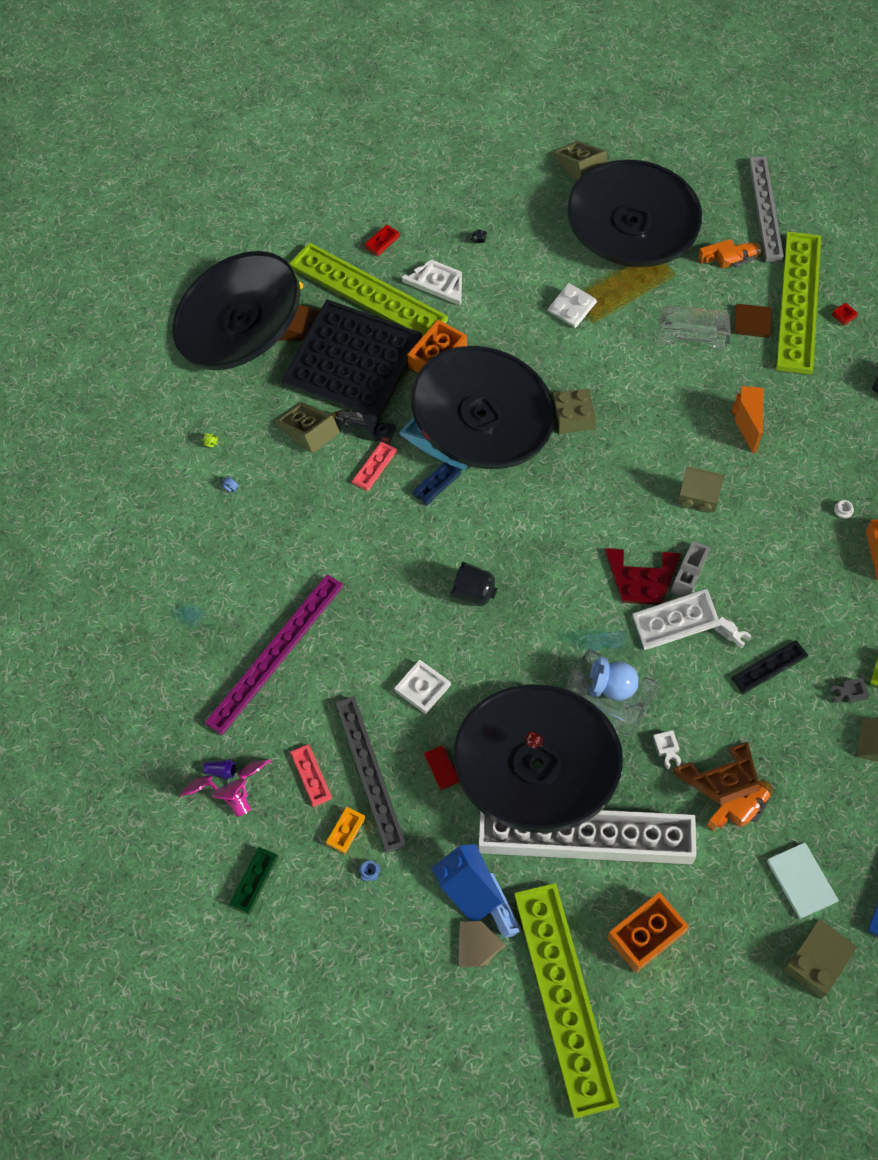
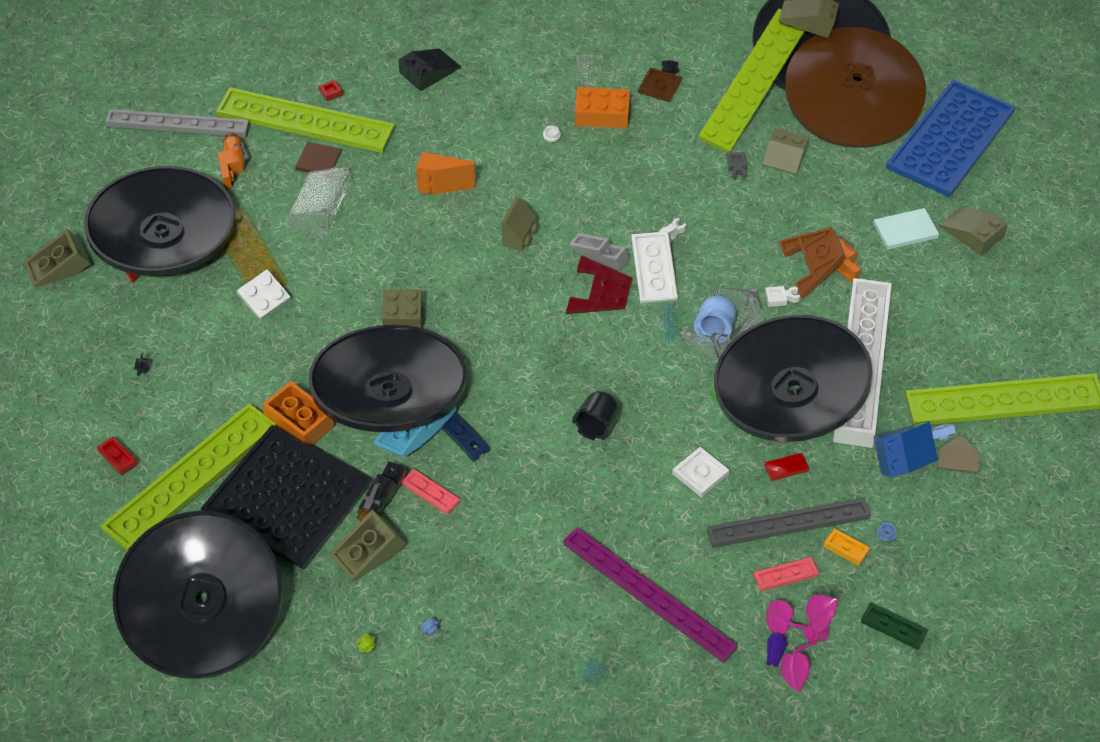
camera: 85 degrees left, 10 degrees down
(437, 280) = (193, 409): white wing -> none
(533, 739) = (781, 372): clear red plate -> none
(647, 932) = (953, 331): orange brick -> none
(769, 667) = (706, 214): black tile -> none

